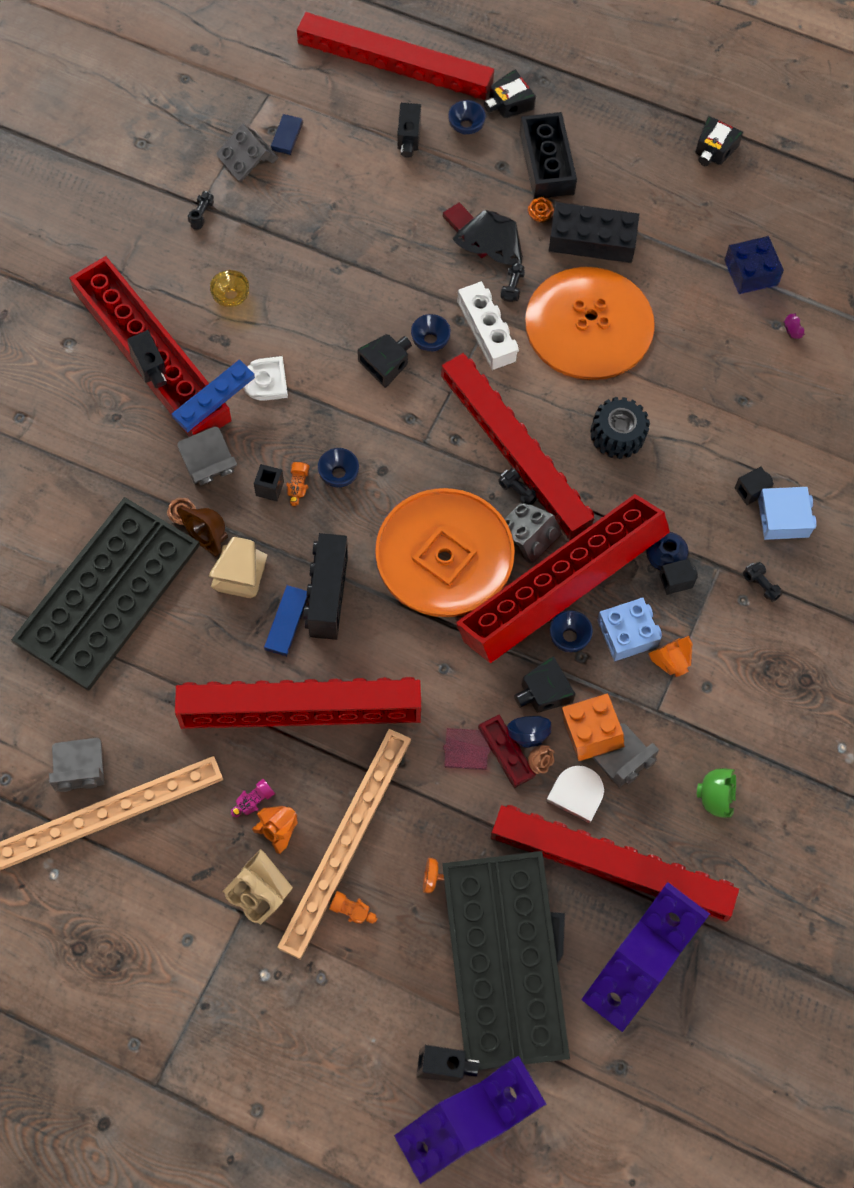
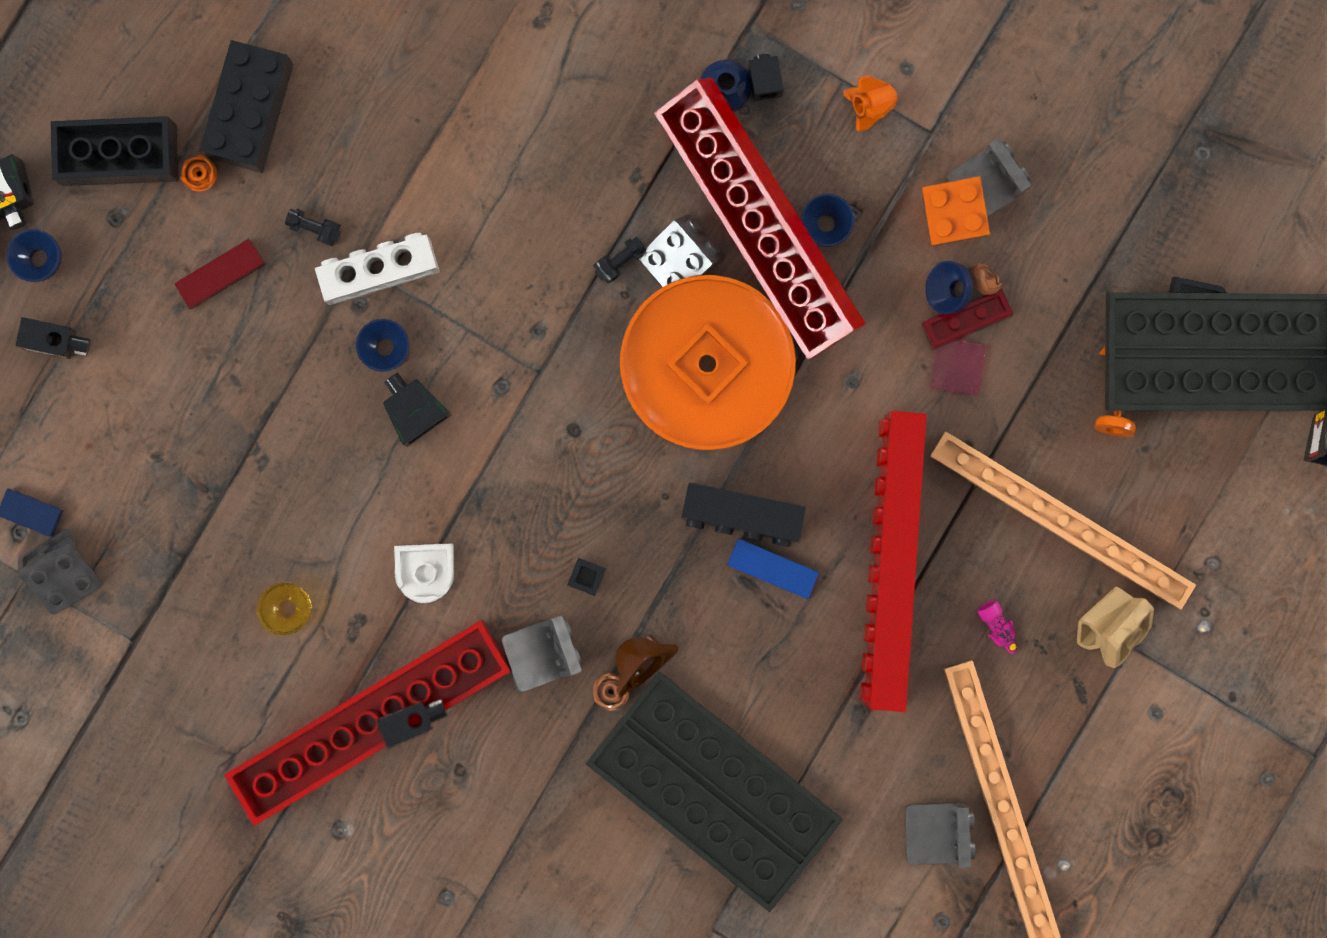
camera: 80 degrees left, 20 degrees up
(195, 216) = (160, 648): black bar -> none
(213, 395) = (462, 639): blue plate -> none
(238, 568) = (702, 623): tan piece -> none
(277, 825) = (1039, 598): orange brick -> none
(296, 488) = (591, 542): orange piece -> none
(335, 459) = (560, 474): dark blue piece -> none
(356, 910) = (1144, 517): orange piece -> none
(493, 234) = (239, 244): black piece -> none
(517, 446) = (560, 254): red brick -> none
(545, 687) = (895, 262): black torso -> none
(578, 792) = (1026, 241): white tile -> none
(583, 346) = (391, 173): orange dish -> none
(610, 861) = (1118, 212): red brick -> none
(619, 427) = (551, 117): black wheel -> none
(629, 629) = (829, 148): light blue brick -> none
(645, 957) = (1239, 192): dark purple bracket -> none
(718, 792) = (1048, 78): bright green cylinder -> none

